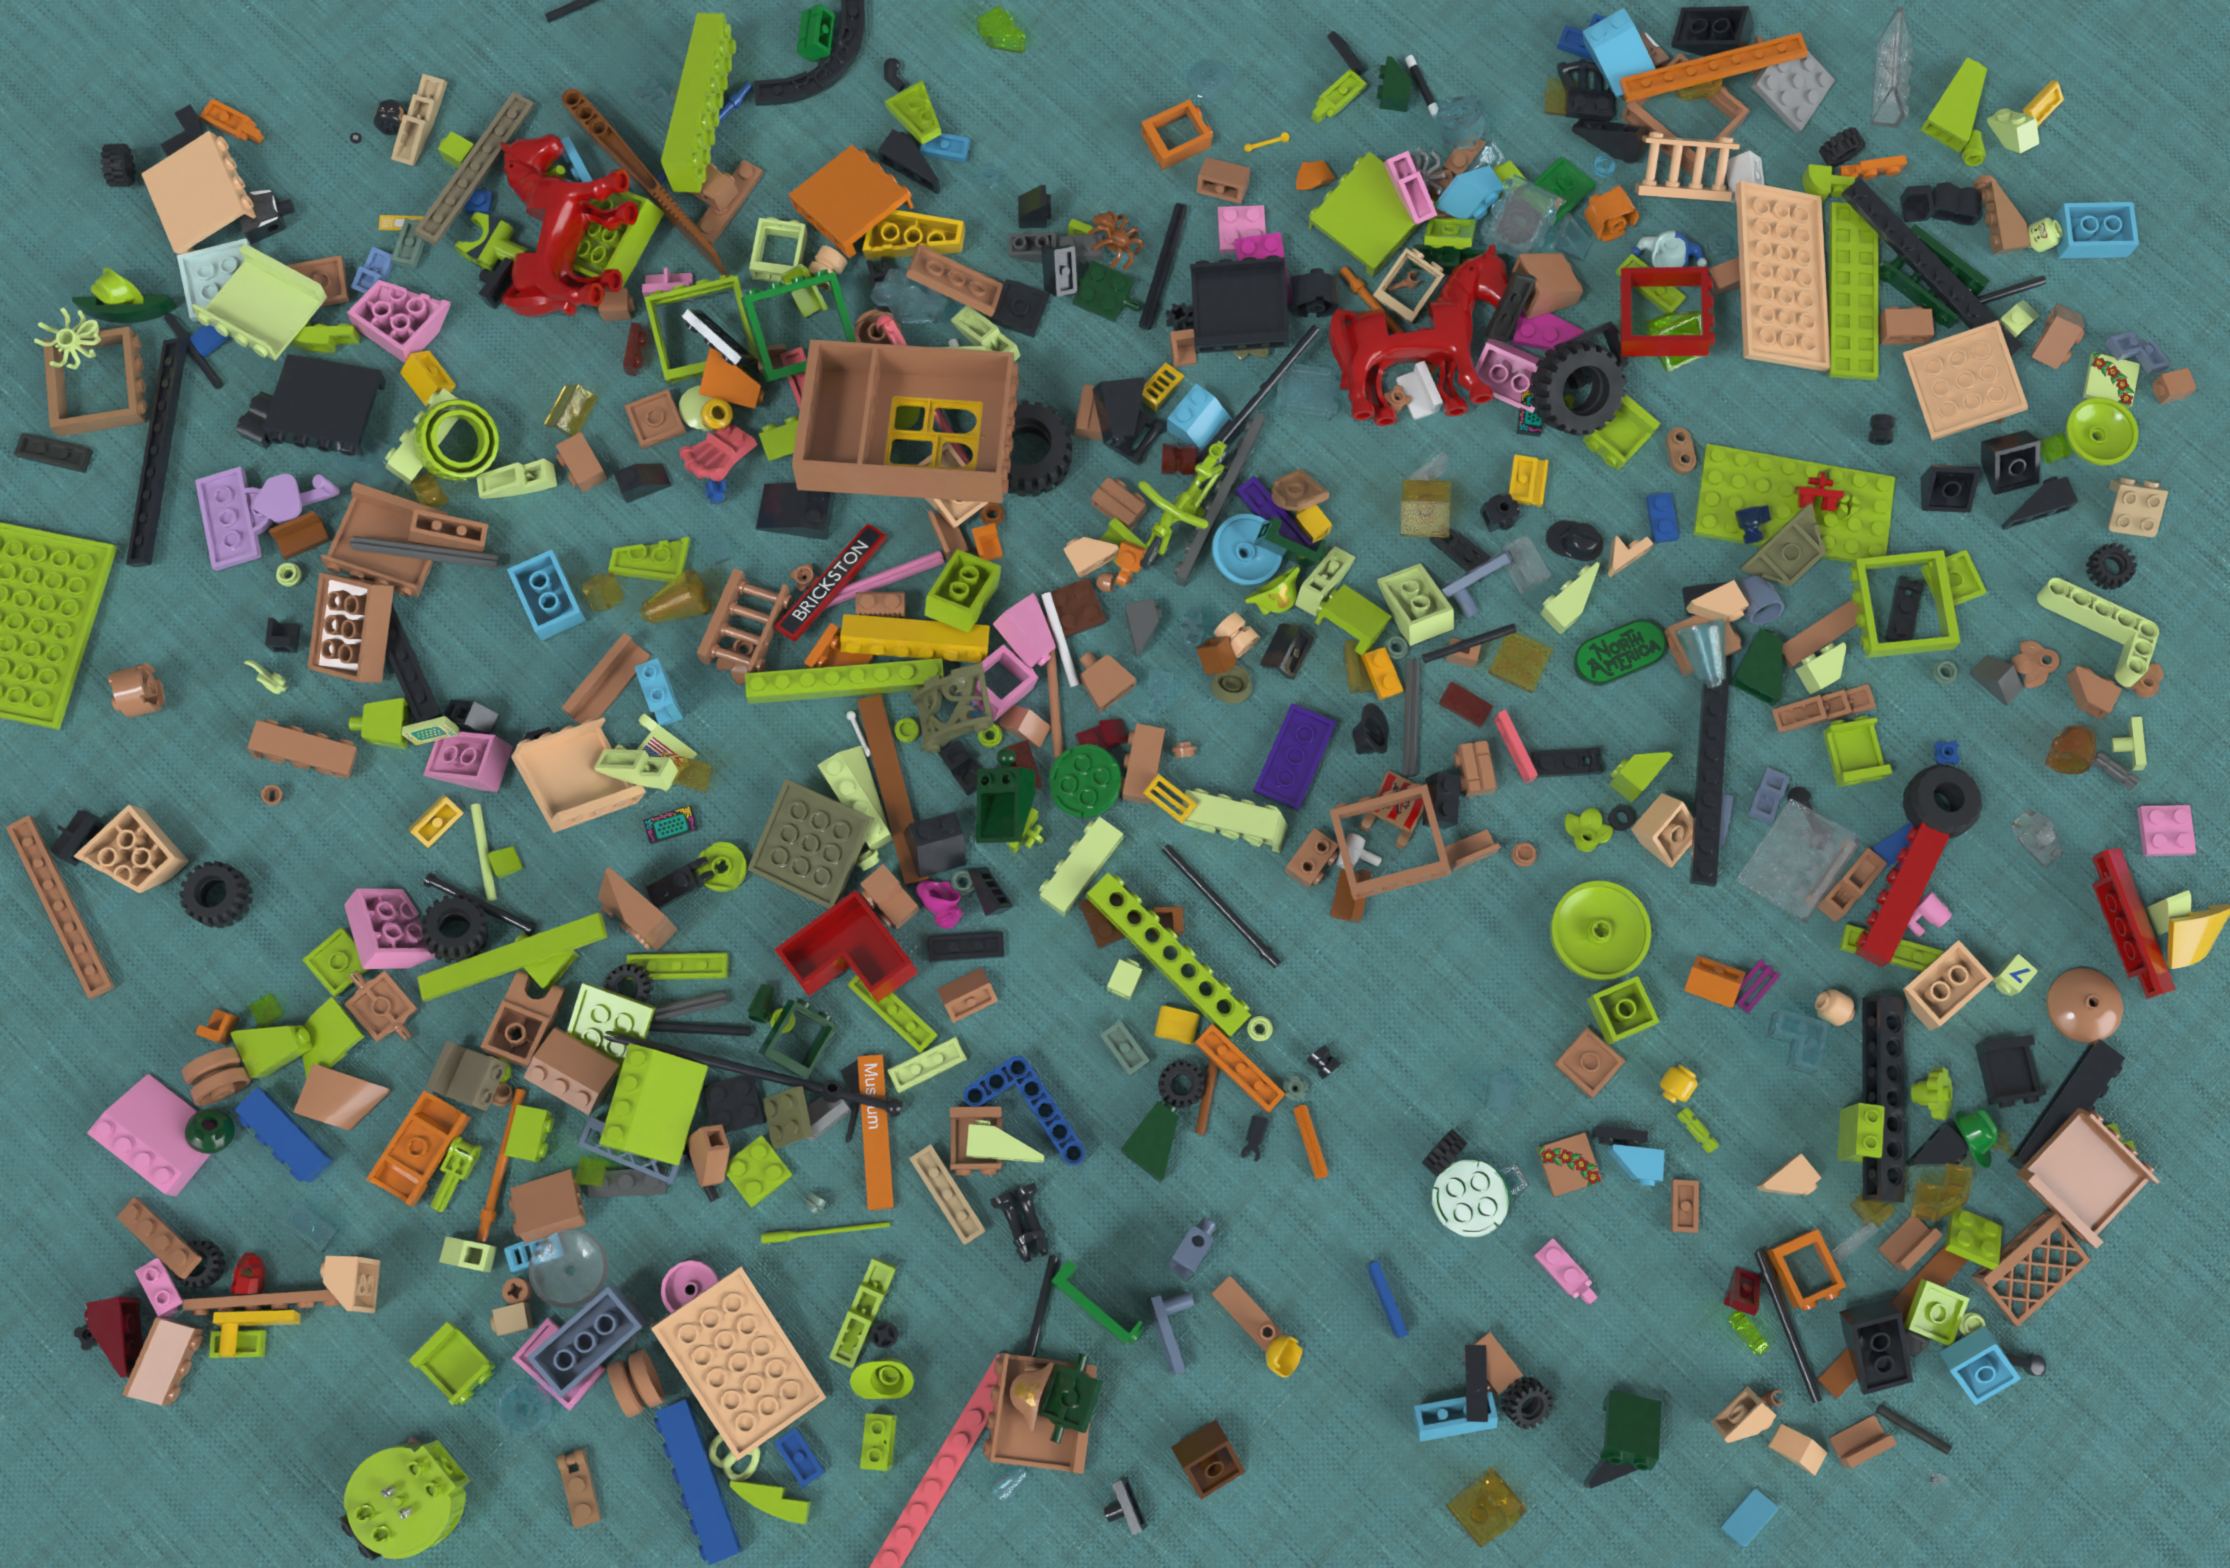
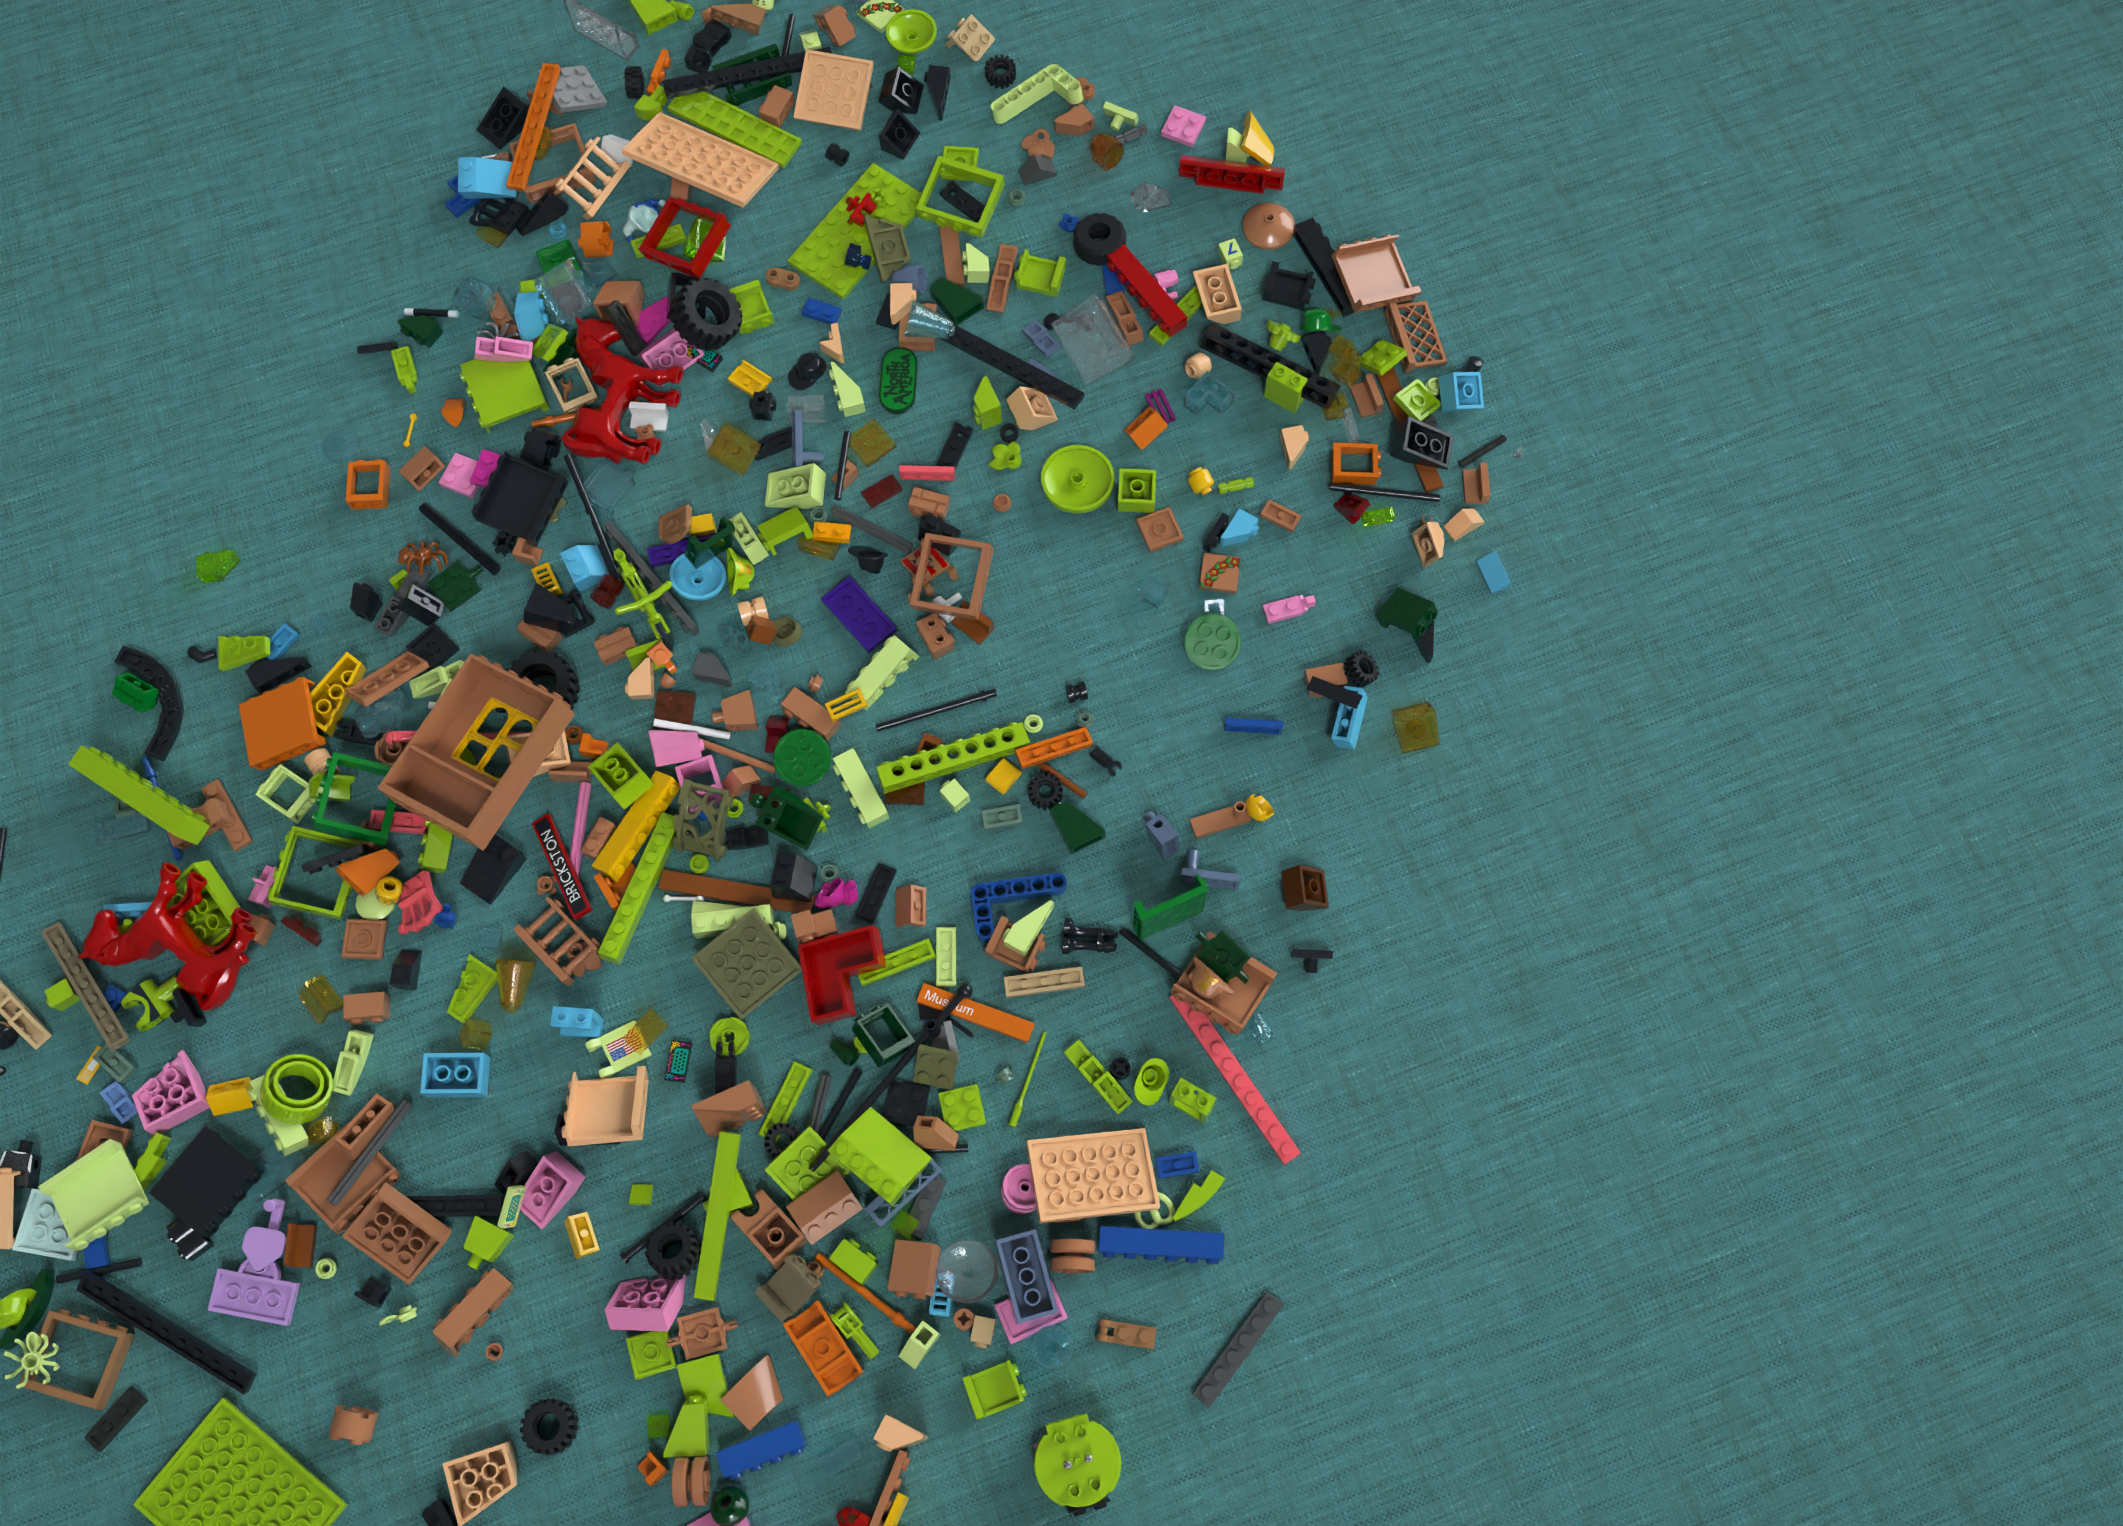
camera: 60 degrees left, 5 degrees down
(483, 851) = (625, 1208): yellowish green bar -> none
(606, 681) = (545, 1061): nougat panel -> none
(619, 152) = (149, 870): dark orange piece -> none
(637, 768) = (624, 1063): yellowish green slope -> none
(989, 892) = (846, 858): black slope -> none
(1287, 650) = (781, 585): black panel -> none
(1310, 1141) = (1125, 726): orange axle -> none
(1444, 1152) = (1175, 643): black tyre -> none
(1470, 850) = (981, 530): nougat panel -> none

